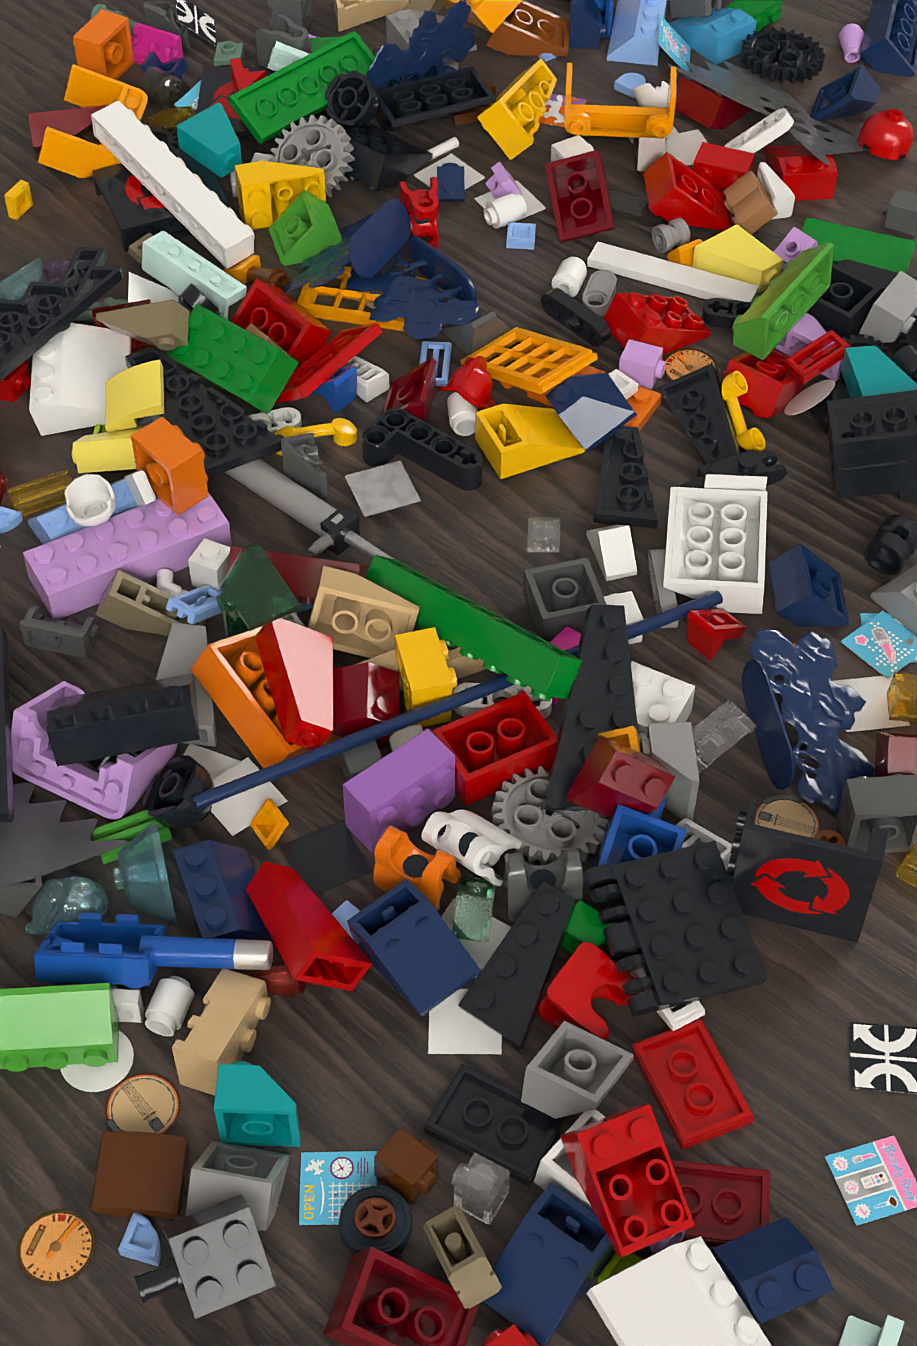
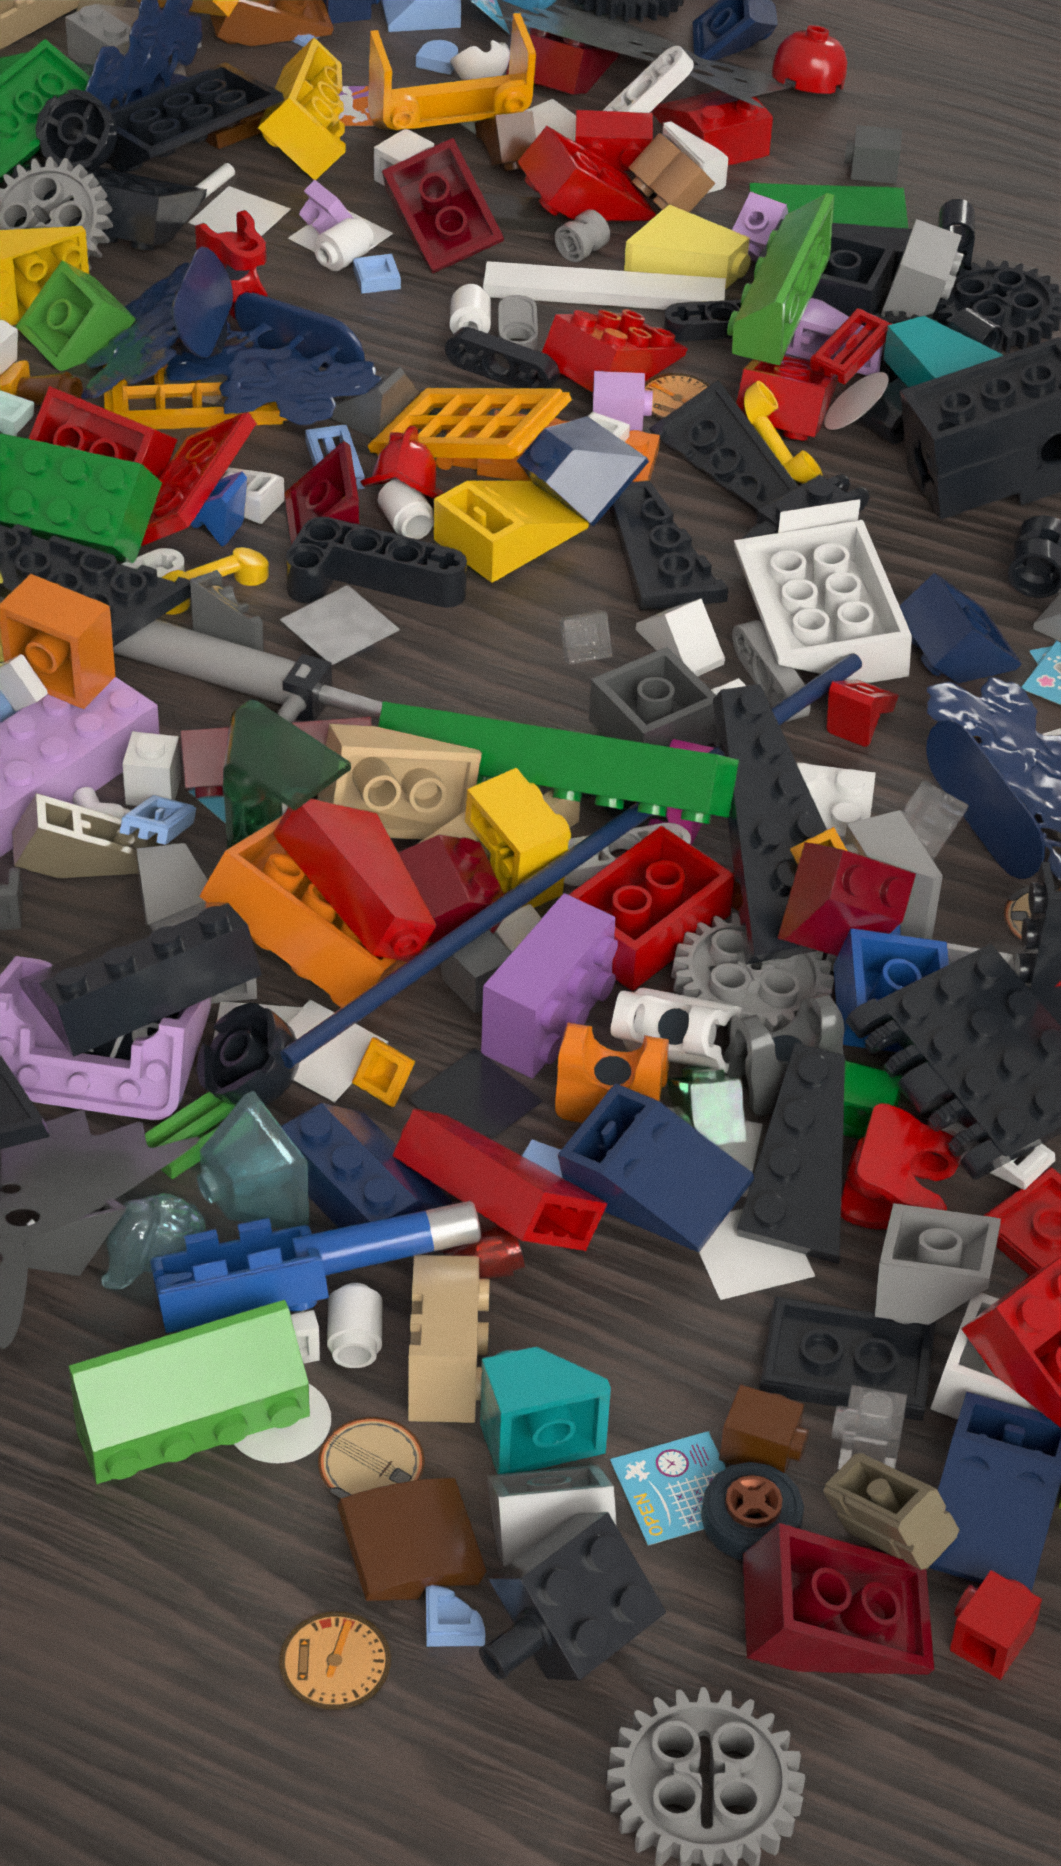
camera: 20 degrees left, 5 degrees down
(450, 183) = (259, 210): dark blue bracket -> none
(684, 254) = (610, 256): light orange slope -> none

